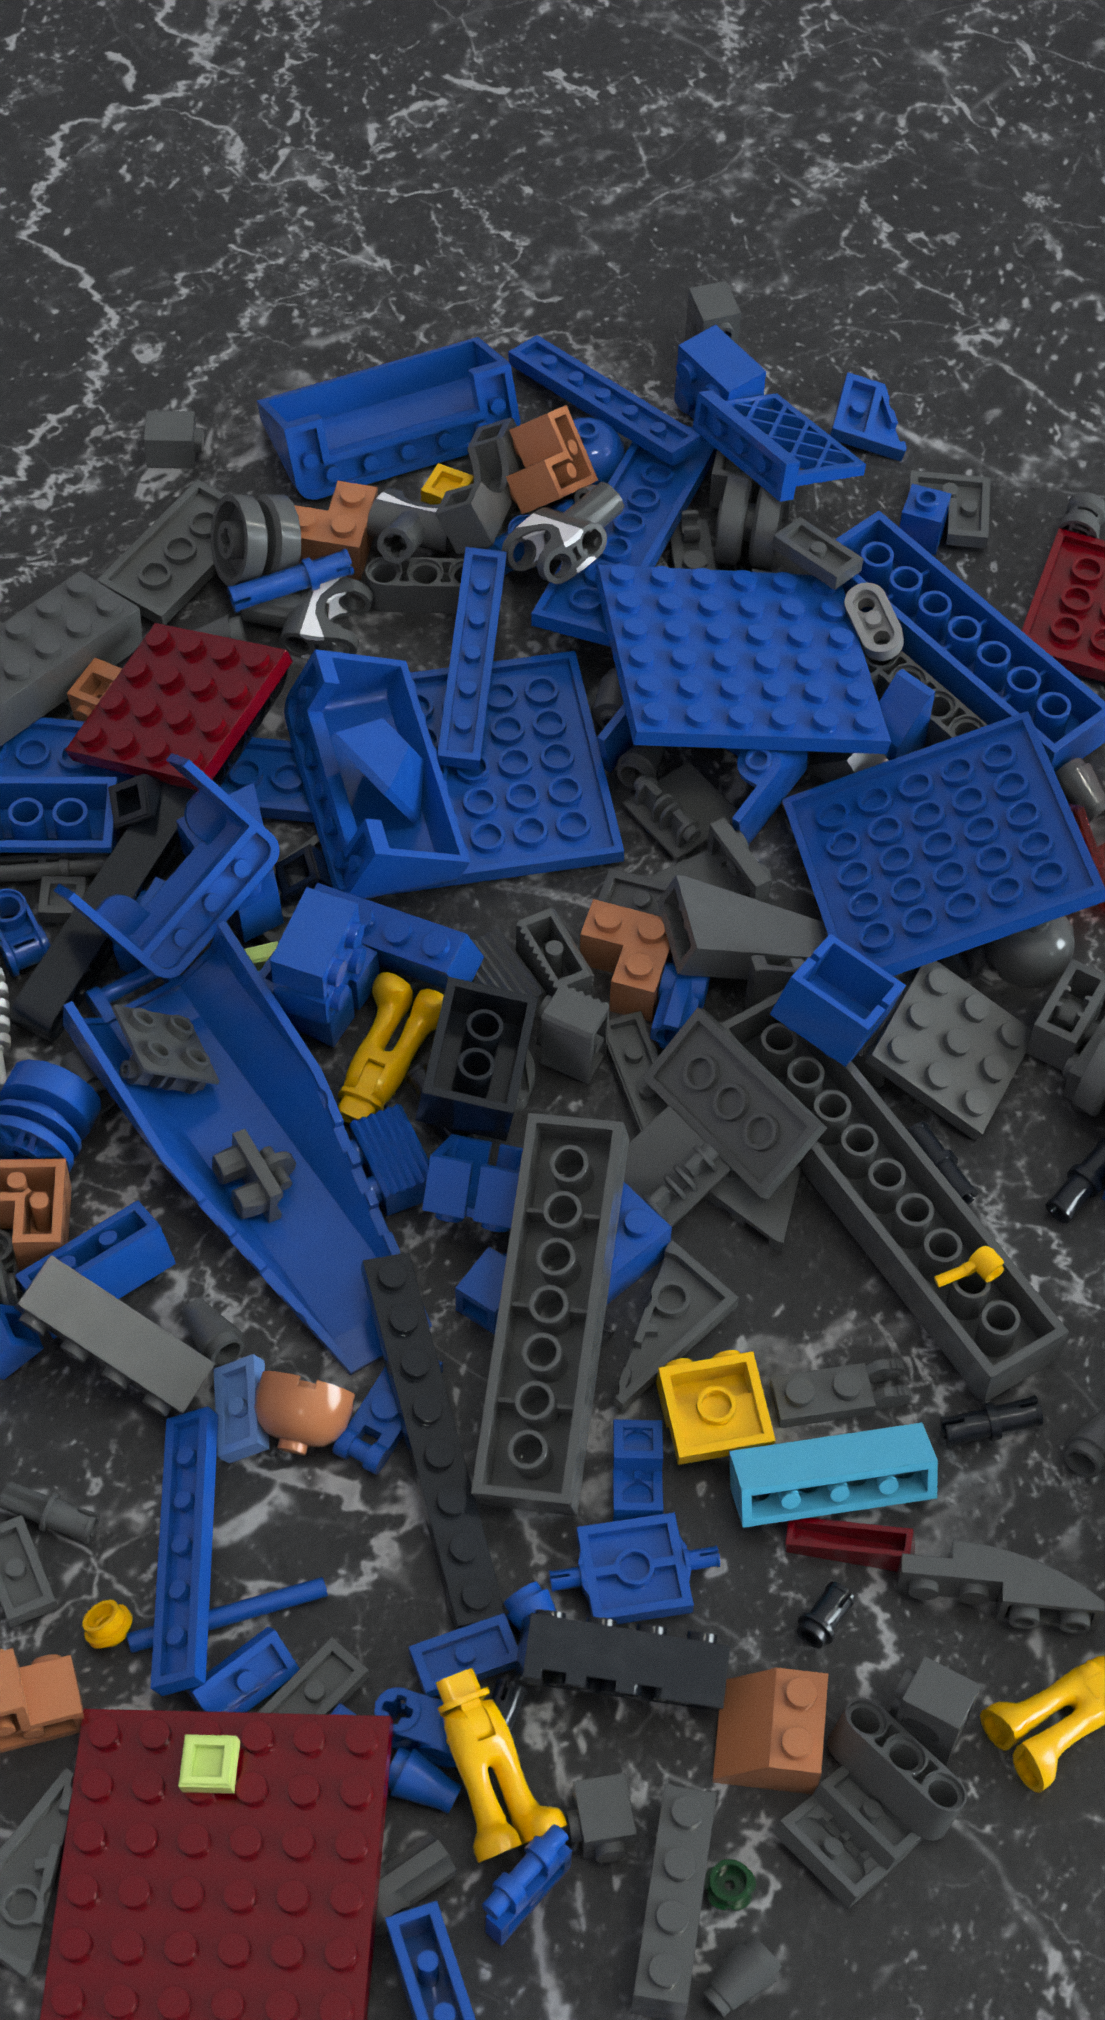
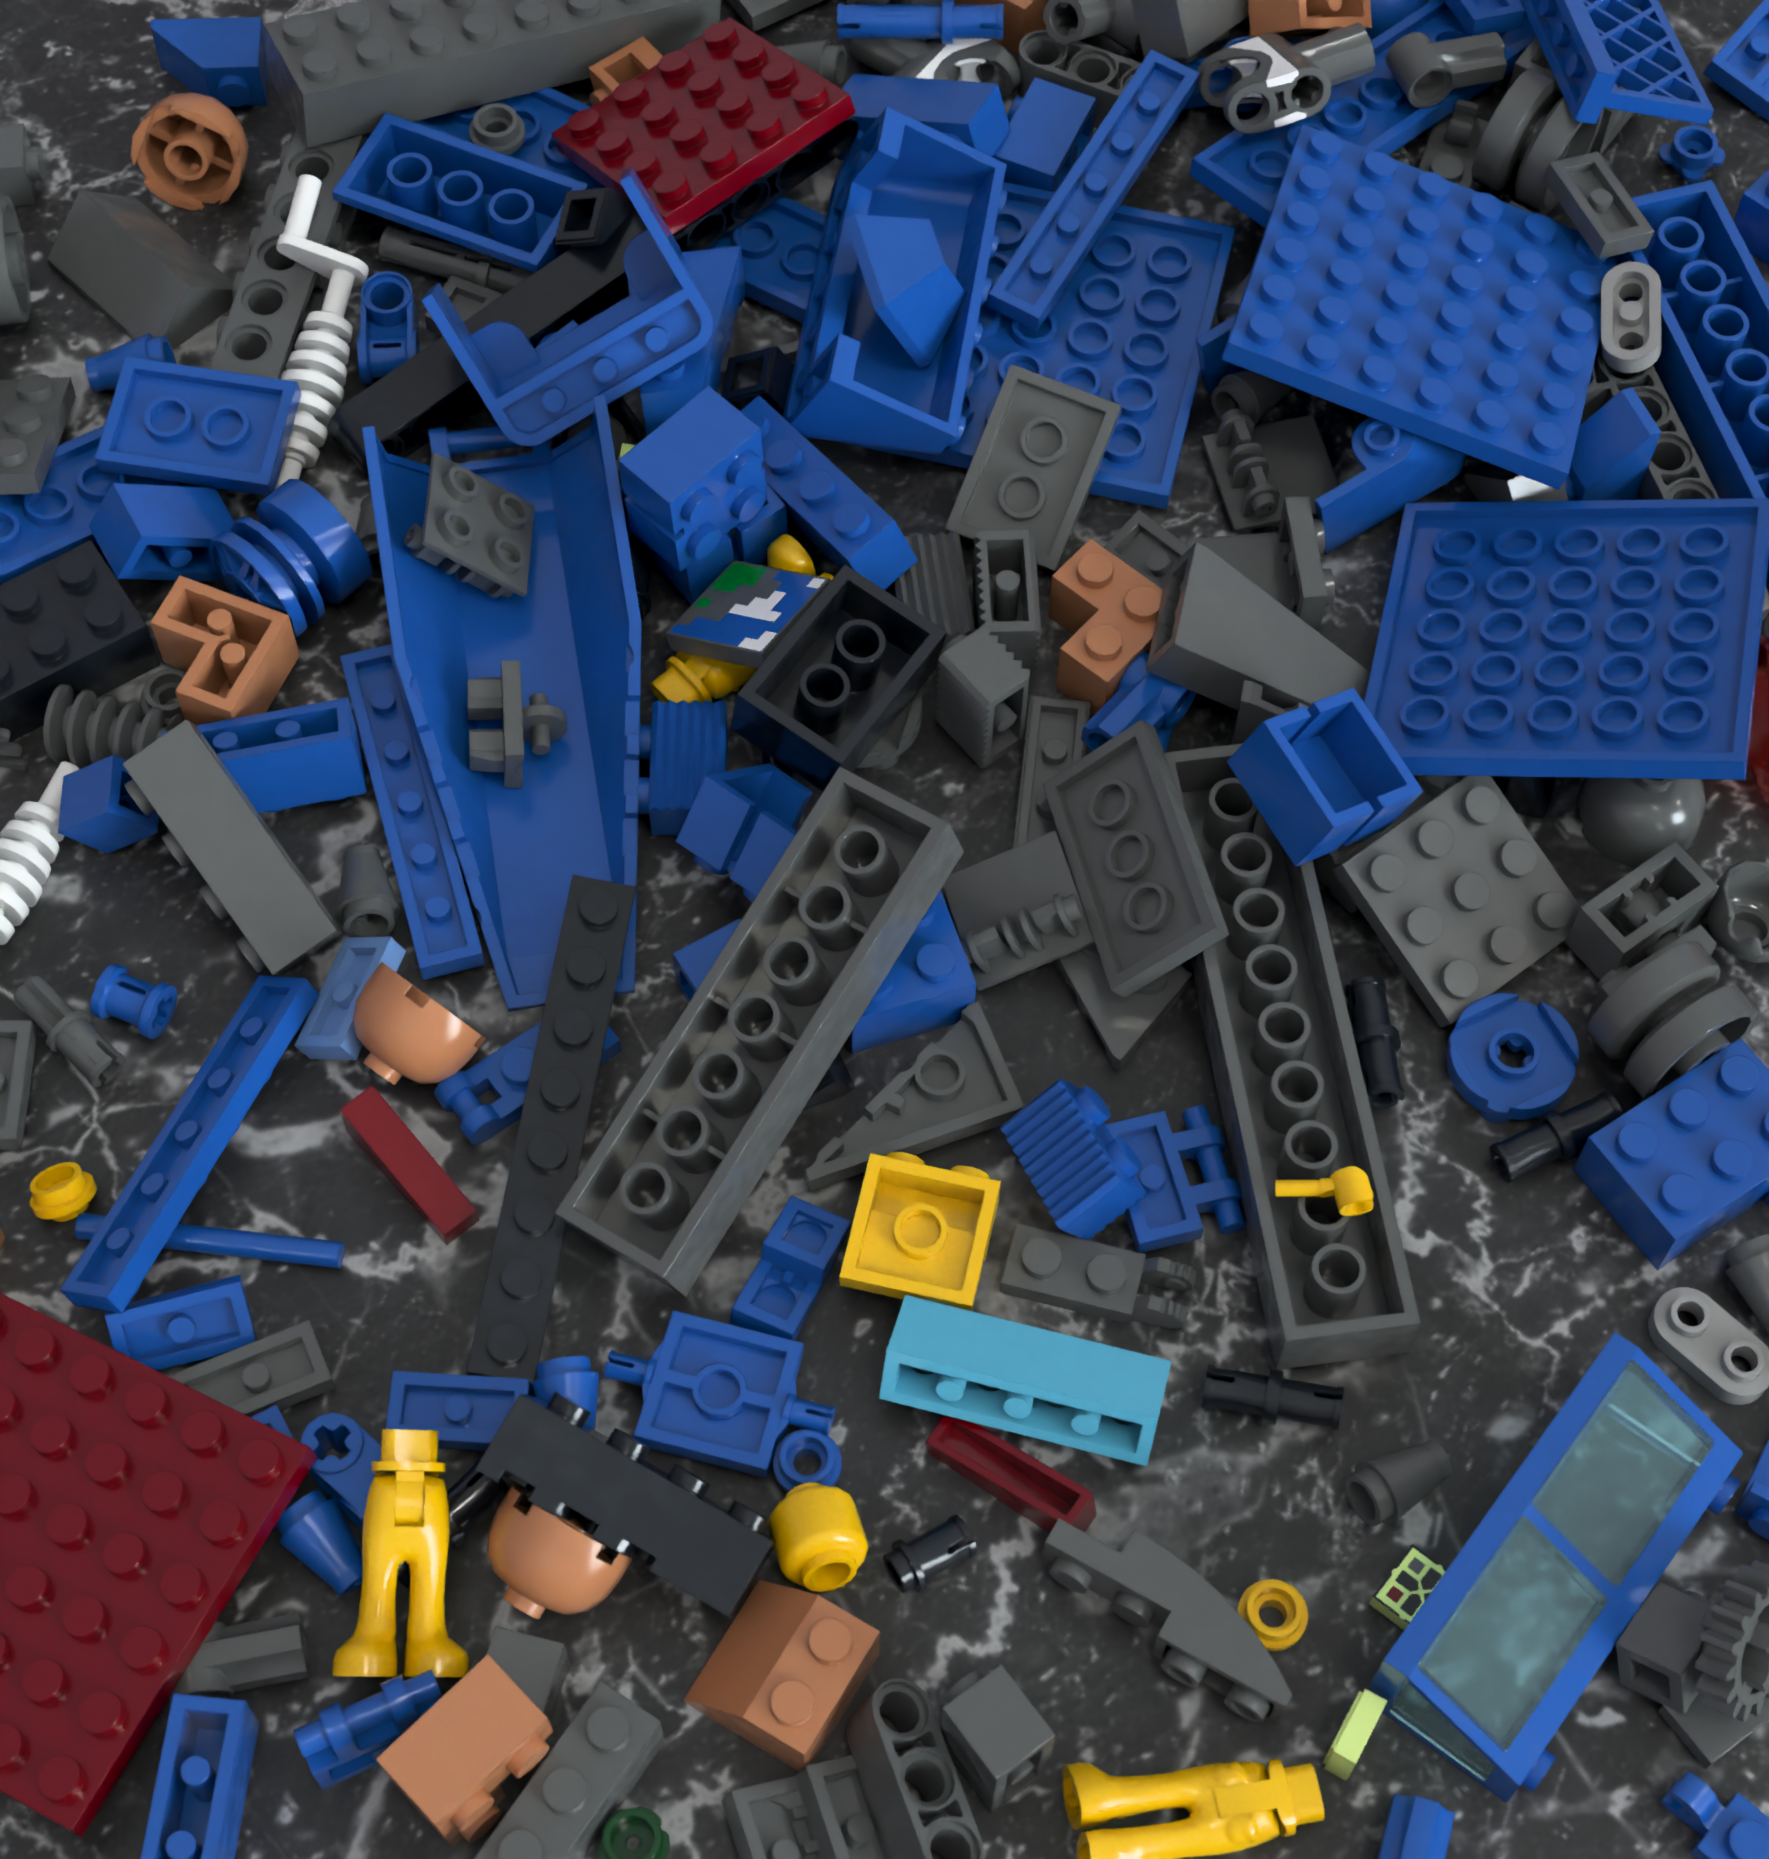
camera: 25 degrees right, 5 degrees up
(24, 752) = (497, 128): none -> dark grey plate
(86, 1472) = (133, 1001): none -> blue bush
(209, 1764) = (70, 1411): yellowish green tile -> none
(216, 1264) = (412, 817): none -> blue plate
(340, 1506) = (408, 1165): none -> dark red piece
(351, 633) = (956, 108): none -> blue brick
(389, 1036) = (745, 613): none -> tile
(411, 630) = (1046, 134): none -> blue brick
(526, 861) = (1035, 463): none -> dark grey plate
(585, 1721) = (549, 1559): none -> nougat cylinder
(596, 1880) = (464, 1749): none -> nougat brick
(661, 496) = (1432, 70): none -> dark grey piece
(717, 1578) = (806, 1444): none -> blue plate
(752, 1632) = (818, 1536): none -> yellow head
(790, 1317) = (1074, 1159): none -> blue brick
(846, 1314) = (1171, 1205): none -> blue plate
(848, 495) = (1692, 152): none -> blue plate
(1024, 1163) = (1506, 1091): none -> blue plate
(1068, 1550) = (1285, 1599): none -> yellow plate

